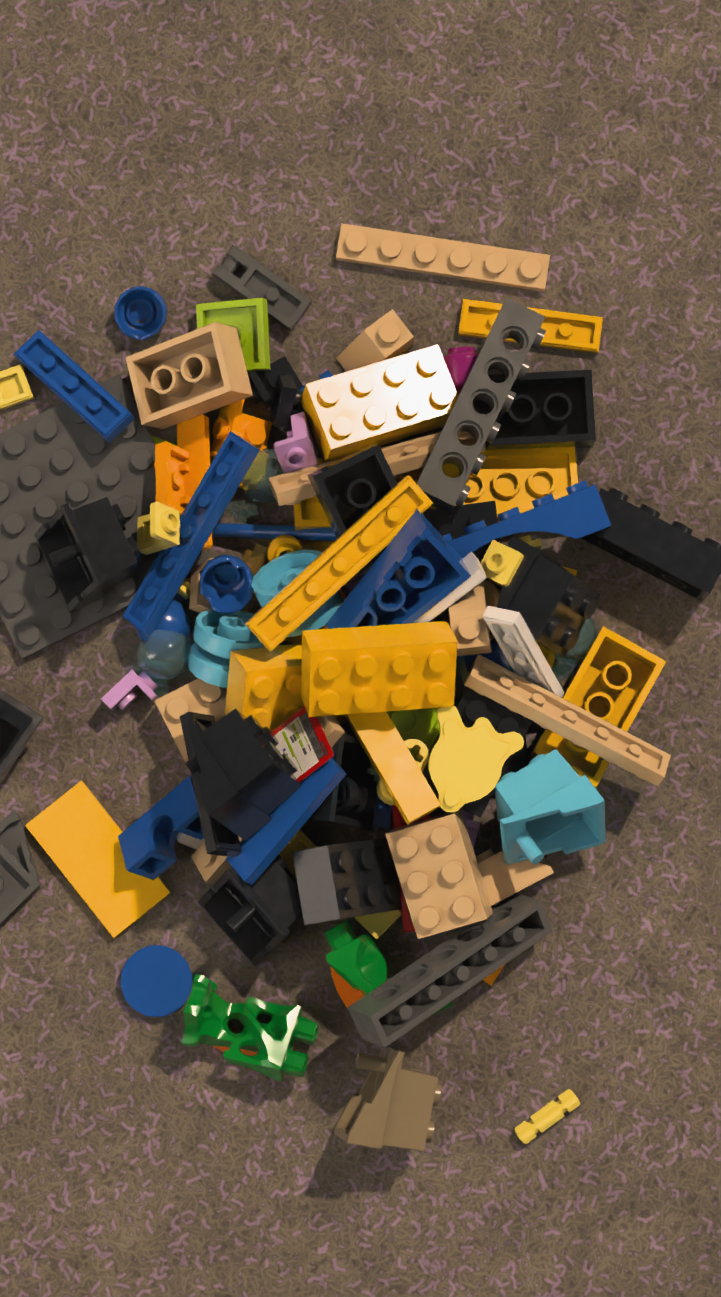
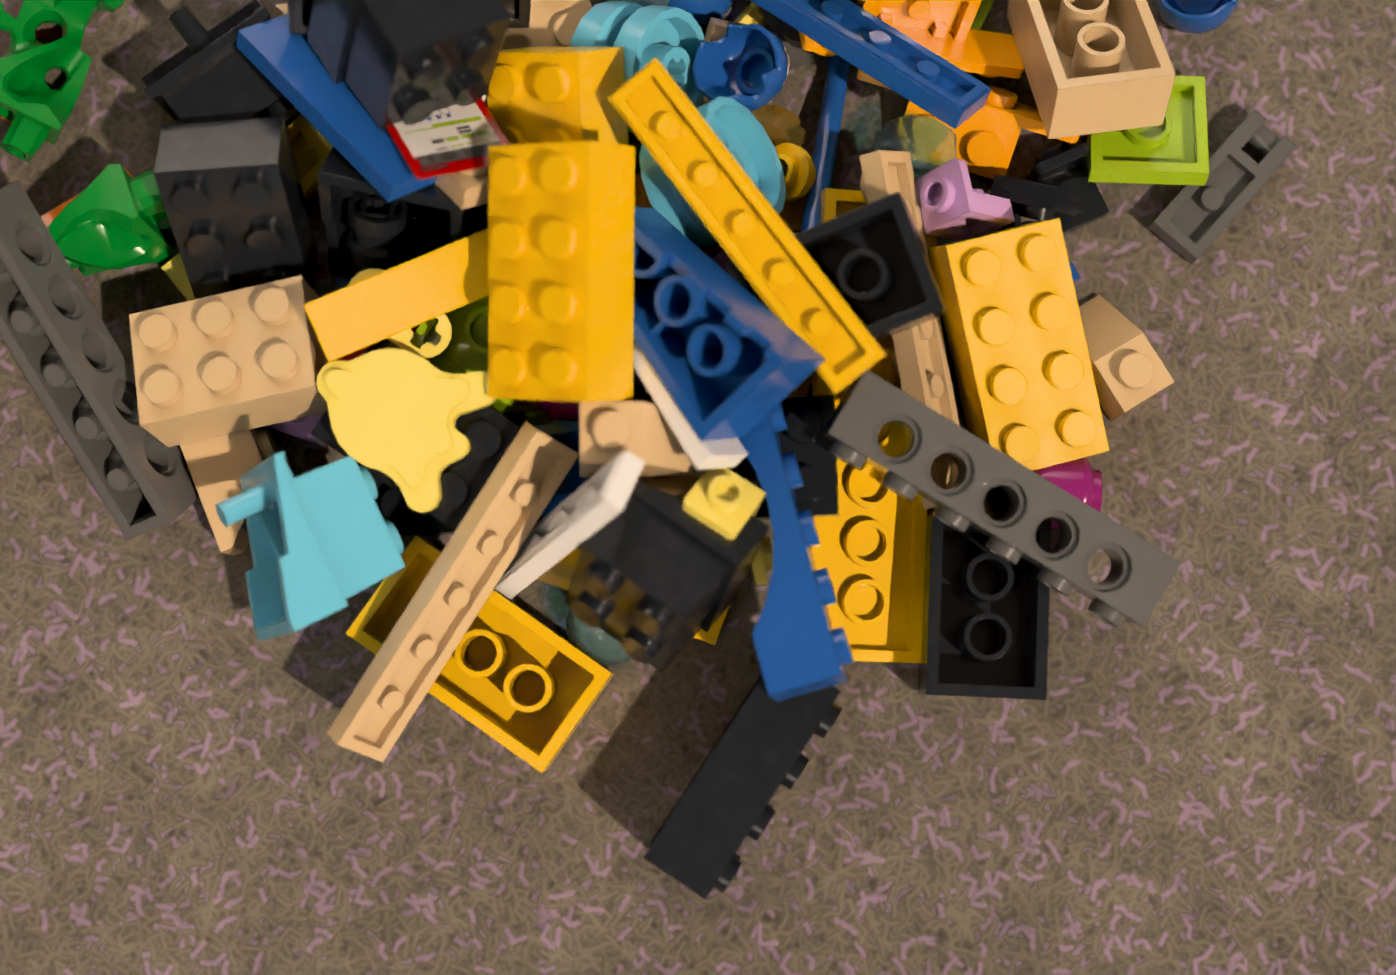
camera: 95 degrees right, 0 degrees up
(443, 257) = (1252, 483): tan plate -> none
(562, 329) = (1121, 656): yellow tile -> none

